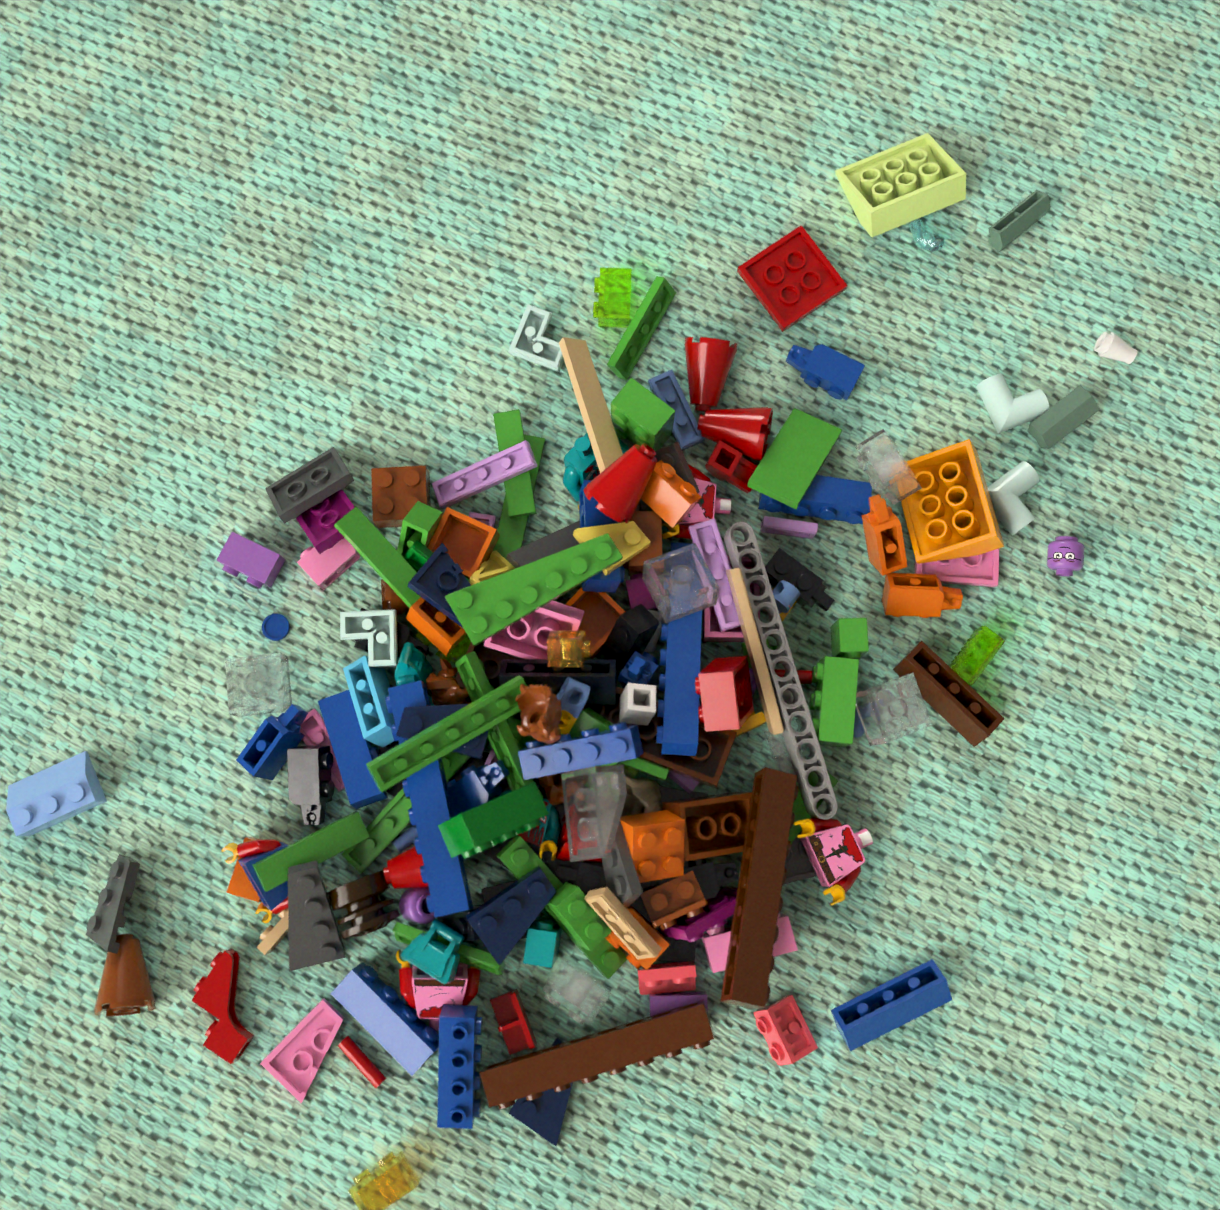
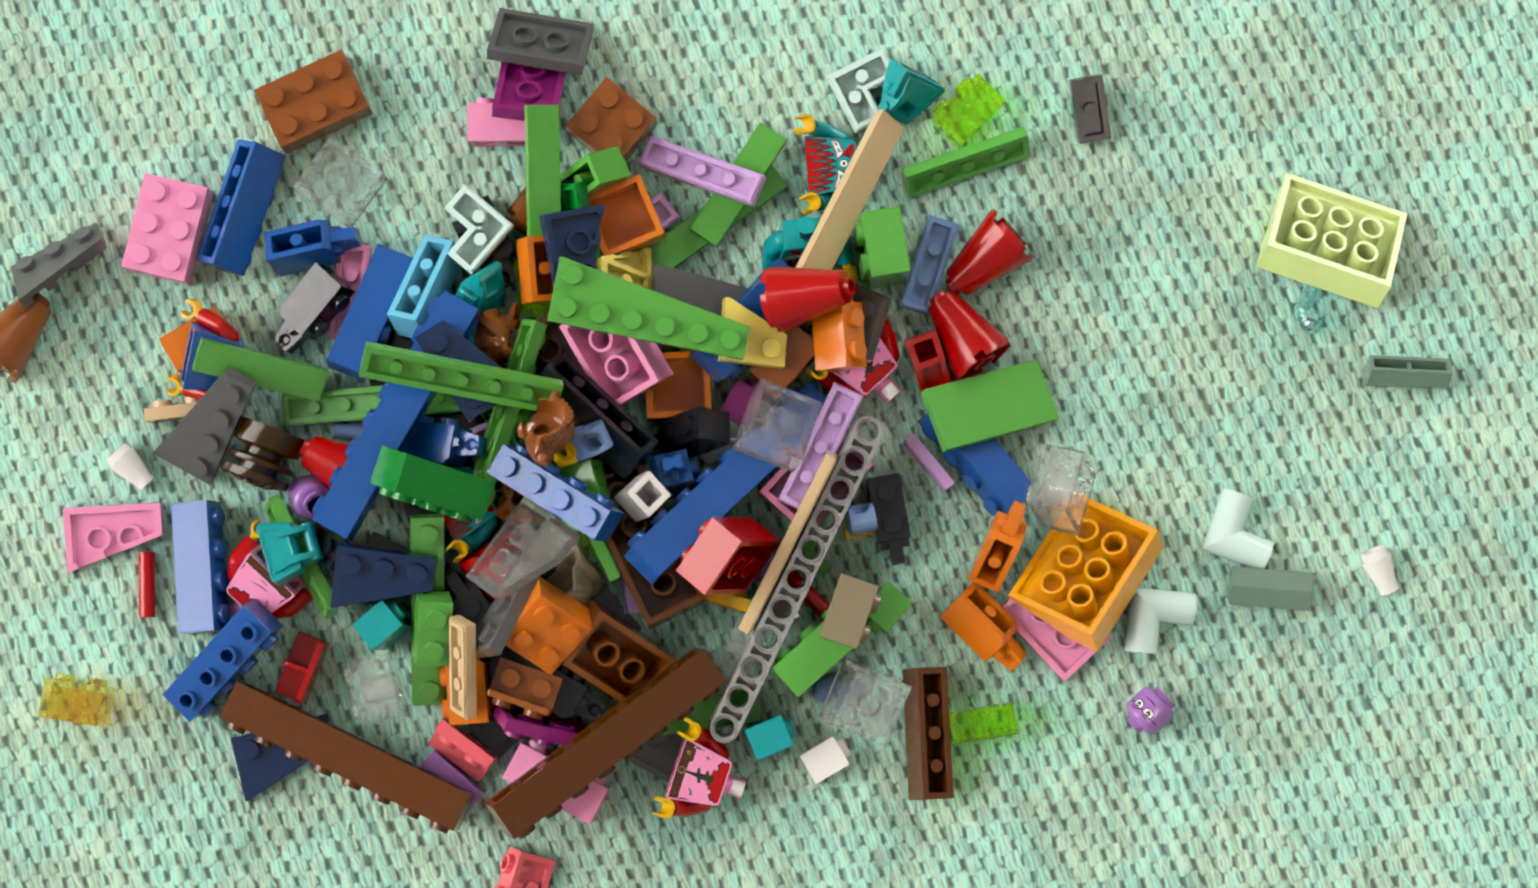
camera: 40 degrees right, 5 degrees up
(53, 795) = (85, 120): light blue slope -> none
(170, 816) = (167, 229): none -> bright pink brick
(195, 649) = (313, 101): none -> dark orange brick
(207, 758) = (241, 207): none -> blue brick
(218, 996) = (75, 420): red arch -> none
(250, 560) = (429, 63): medium lavender brick -> none
(275, 627) = (400, 142): blue piece -> none
(281, 993) = (130, 466): none -> white cone
(555, 401) = (826, 157): none -> torso
(567, 316) = (907, 92): none -> teal piece
(567, 648) = (625, 394): clear yellow brick -> none
(686, 231) = (1090, 108): none -> black hinge
(792, 278) = (1147, 238): red plate -> none
(826, 369) = (1098, 351): blue hinge -> none
(836, 657) = (849, 611): none -> dark tan brick
(855, 785) = (770, 736): none -> teal brick
(899, 769) = (826, 758): none -> white brick

